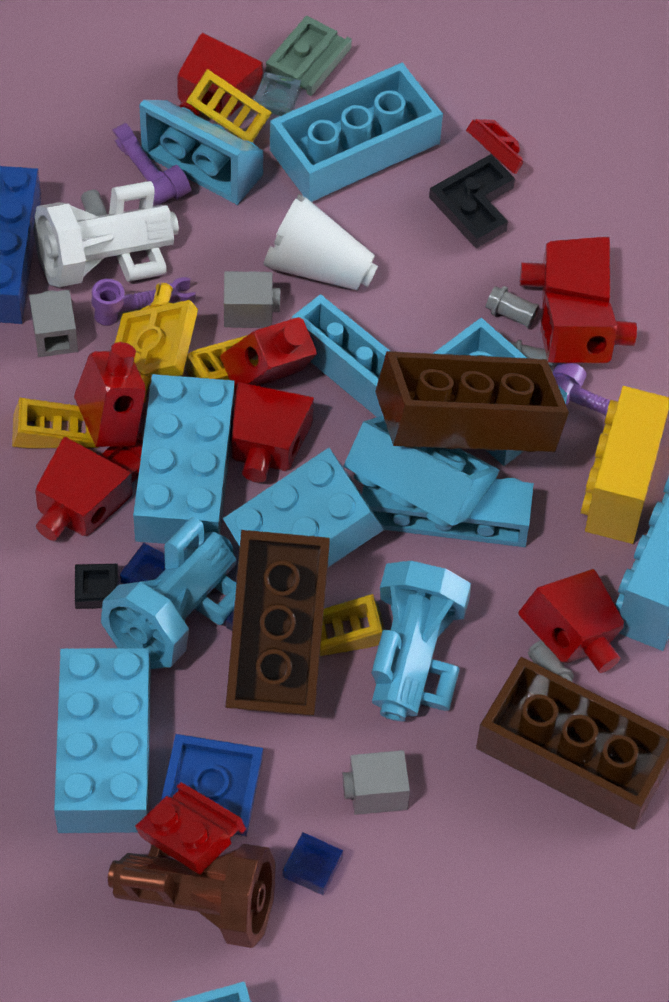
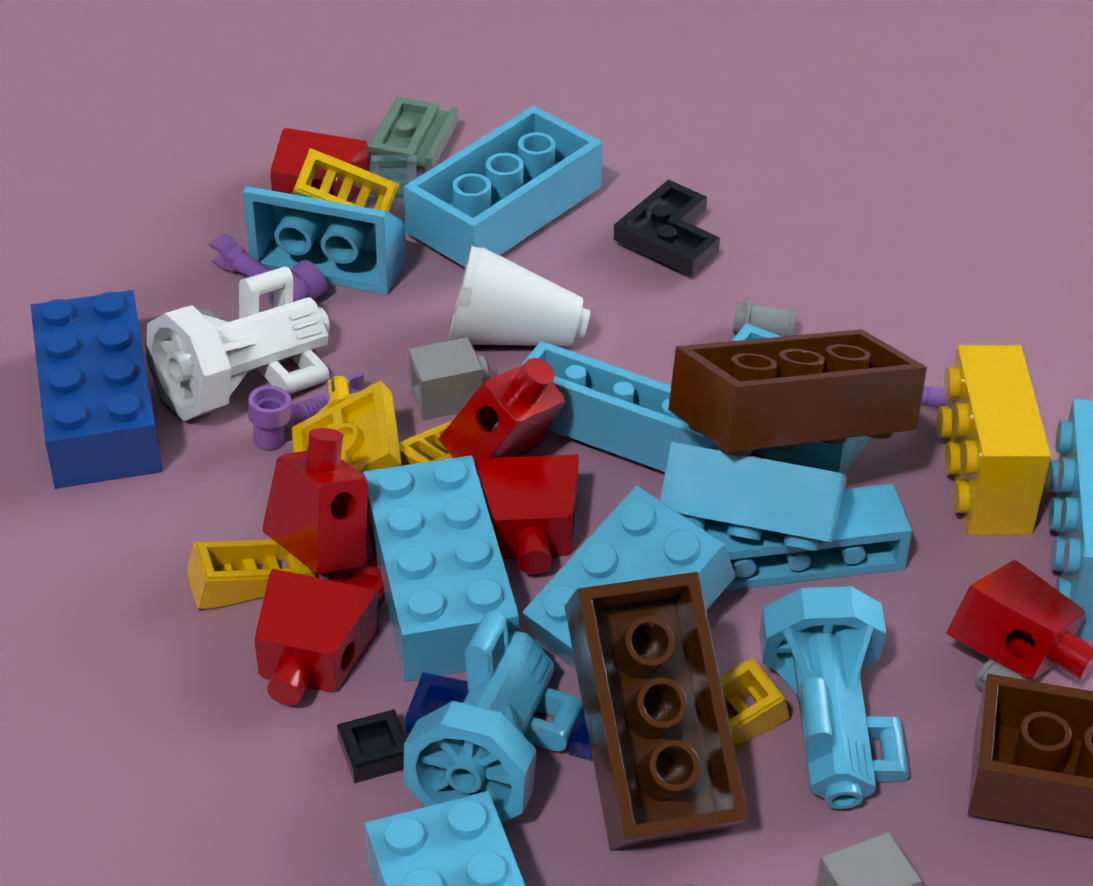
camera: 15 degrees left, 15 degrees down
(53, 323) = (207, 455): light grey brick -> none
(497, 142) = (670, 169): red tile -> none
(572, 269) = (822, 276): red torso -> none
(582, 330) = (874, 309): red torso -> none

